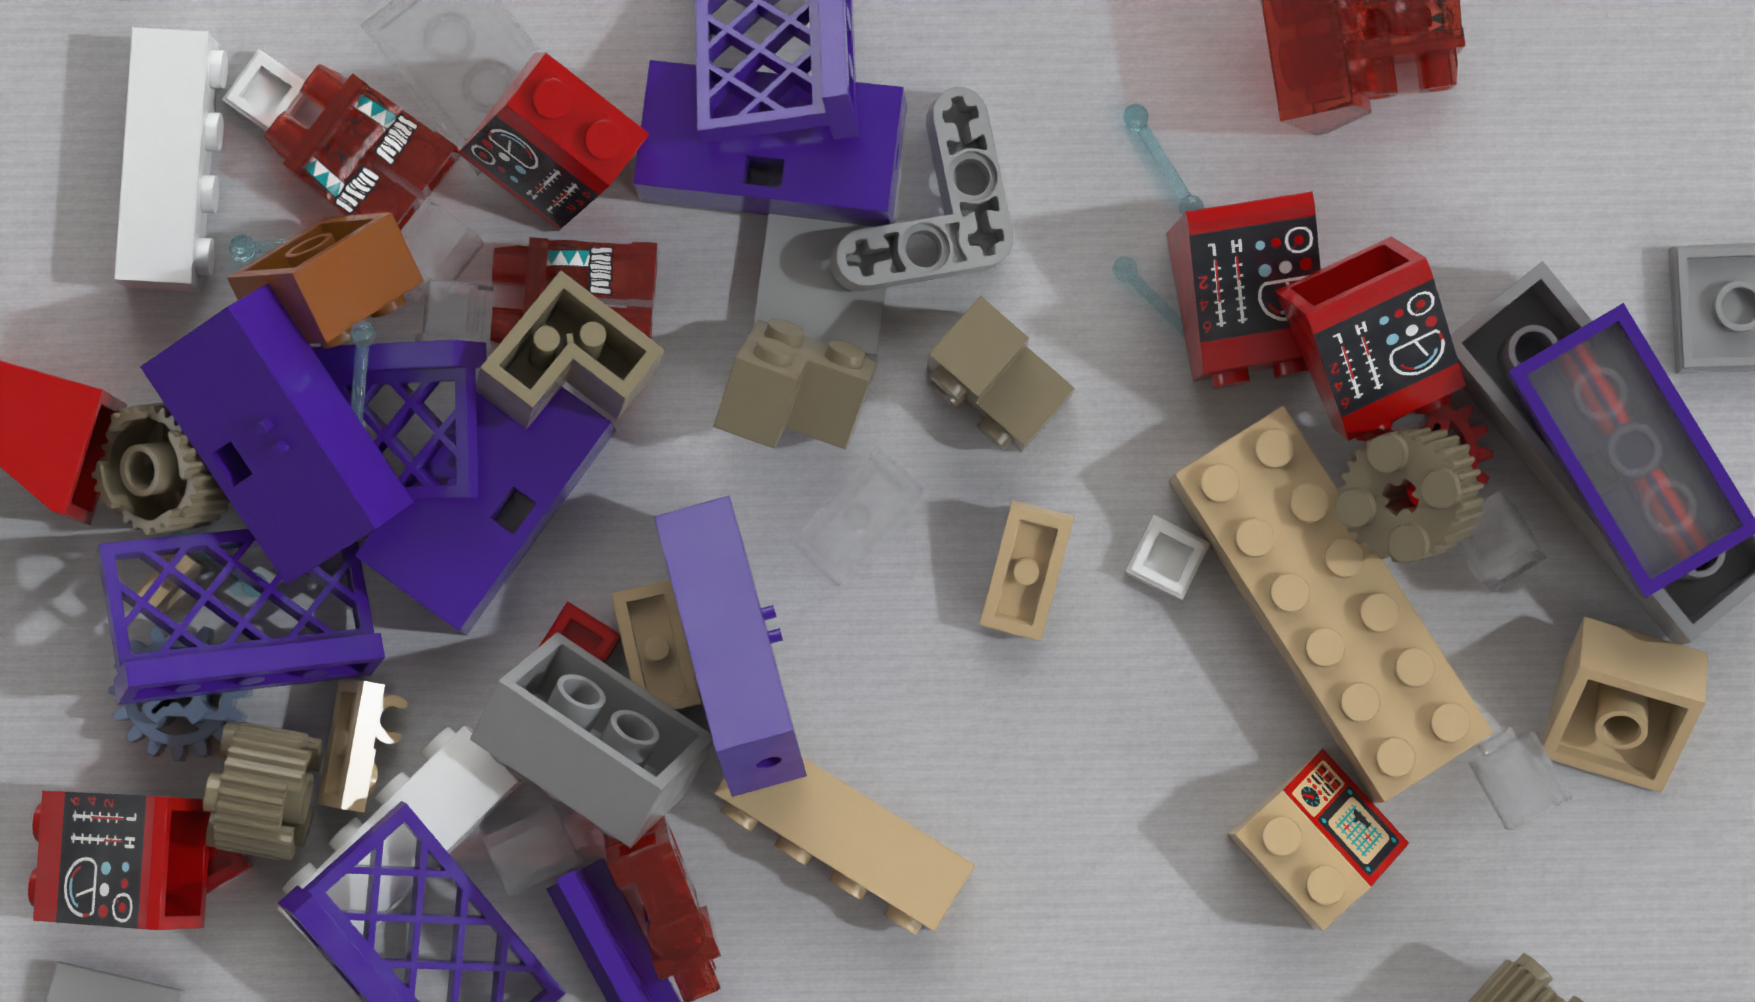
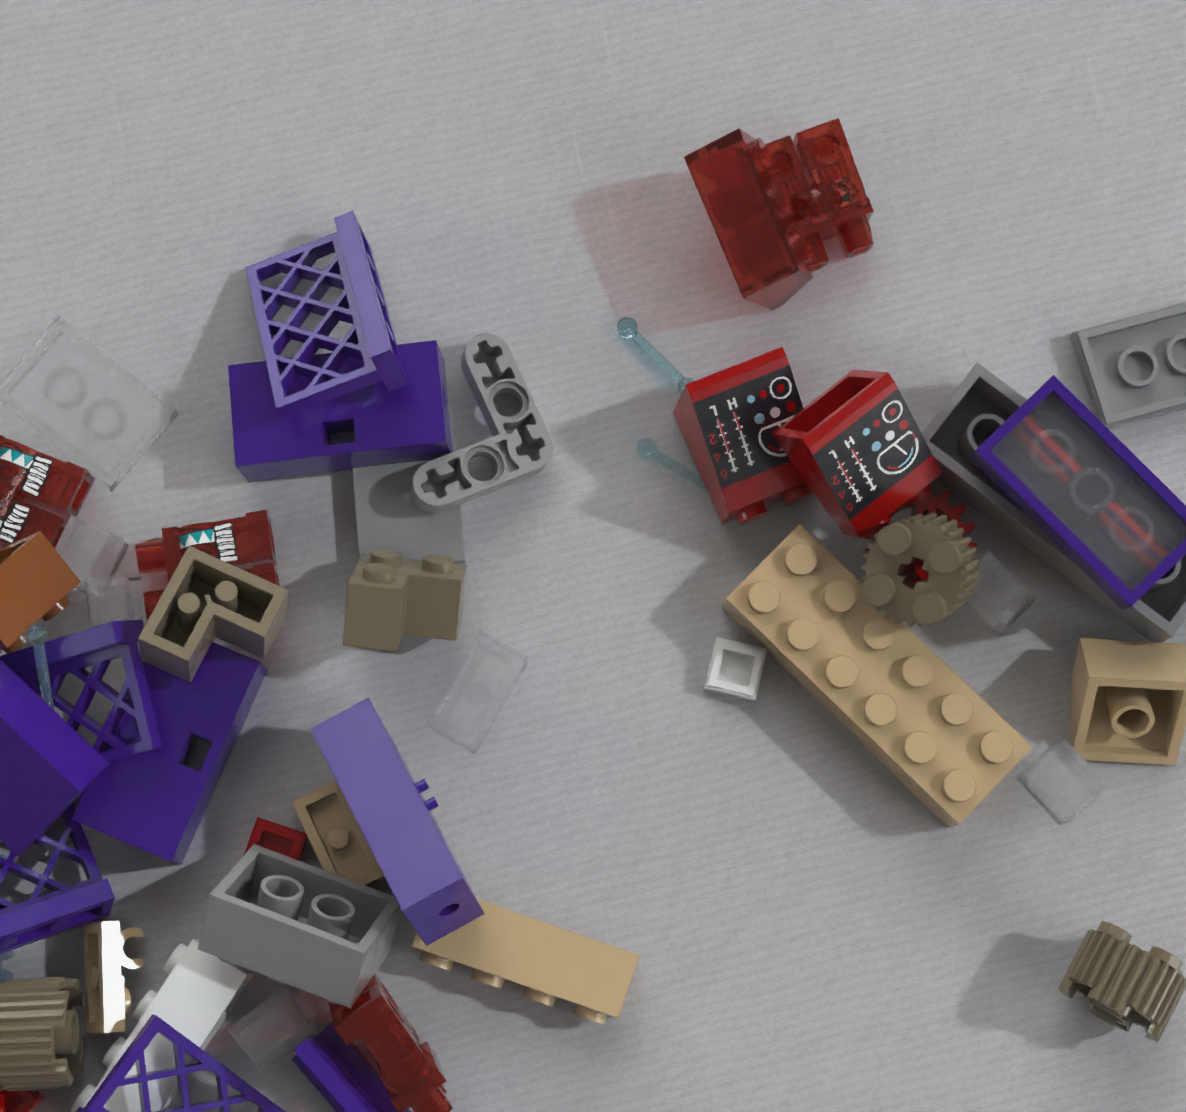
camera: 15 degrees left, 5 degrees down
(553, 141) = (162, 446): red slope -> none
(997, 376) = (564, 554): dark tan brick -> none
(1026, 570) = (625, 704): tan plate -> none
(1319, 840) = (913, 869): tan slope -> none

